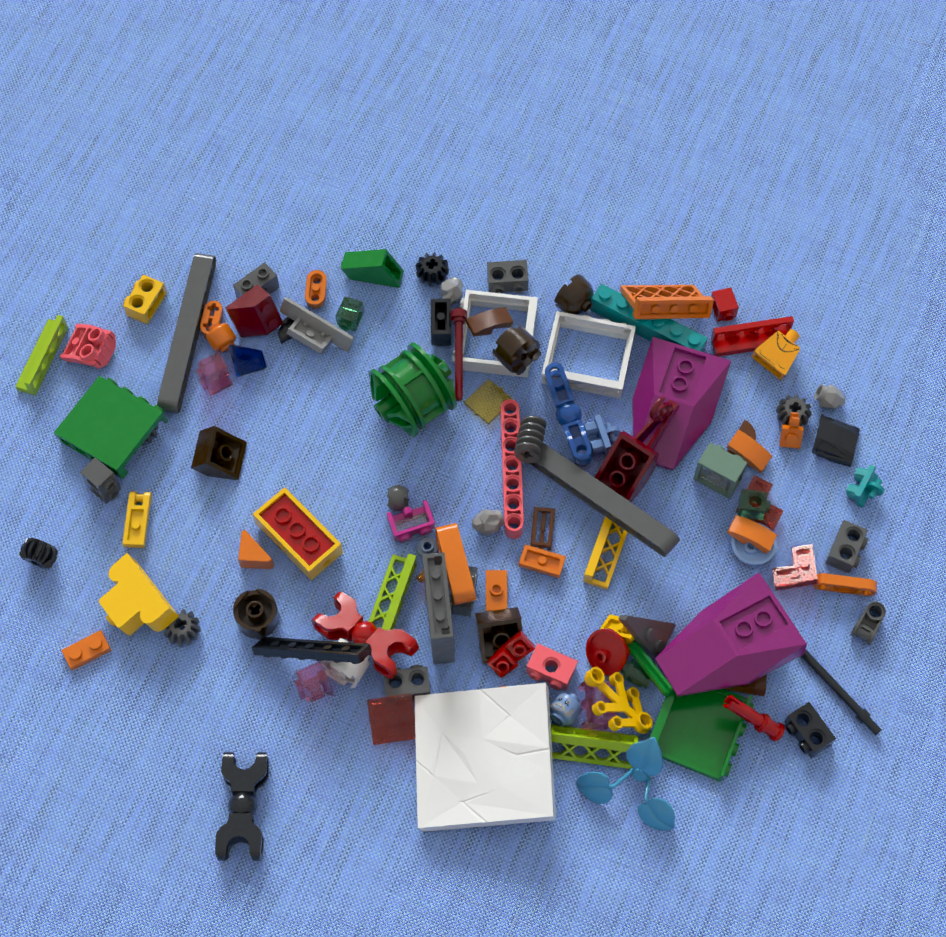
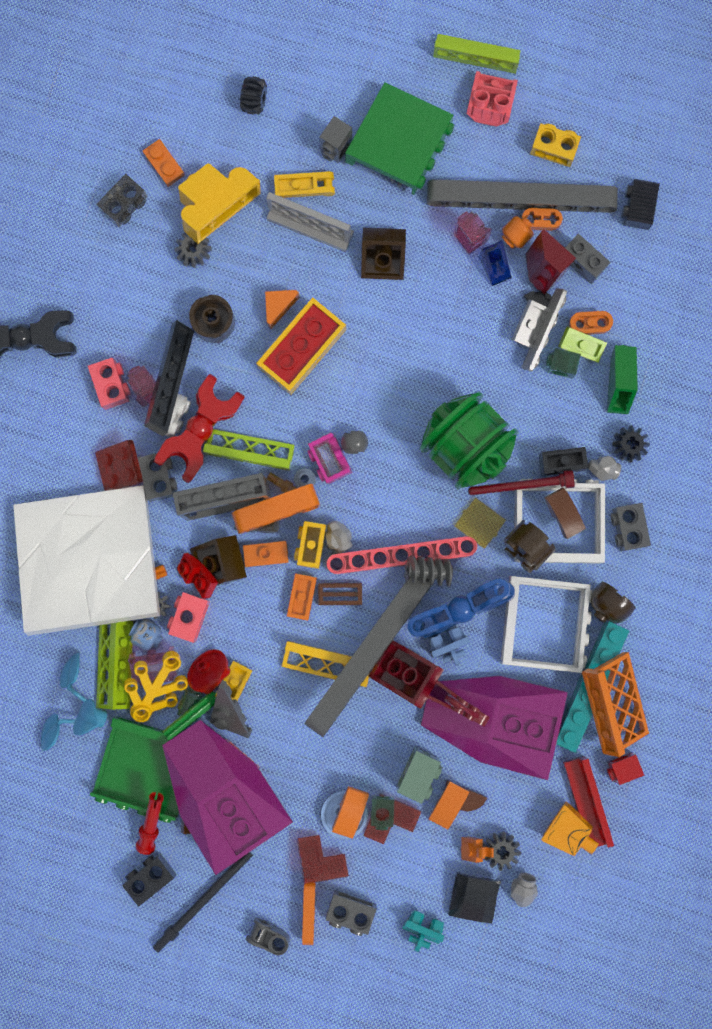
camera: 85 degrees right, 20 degrees up
(115, 693) = (117, 197): none -> clear smoke brick
(176, 514) = (309, 222): none -> light grey fence
(214, 237) = (641, 204): none -> black brick
(305, 728) = (105, 385): none -> coral brick
(334, 296) = (582, 343): none -> lime plate
(493, 544) = (311, 545): none -> yellow brick

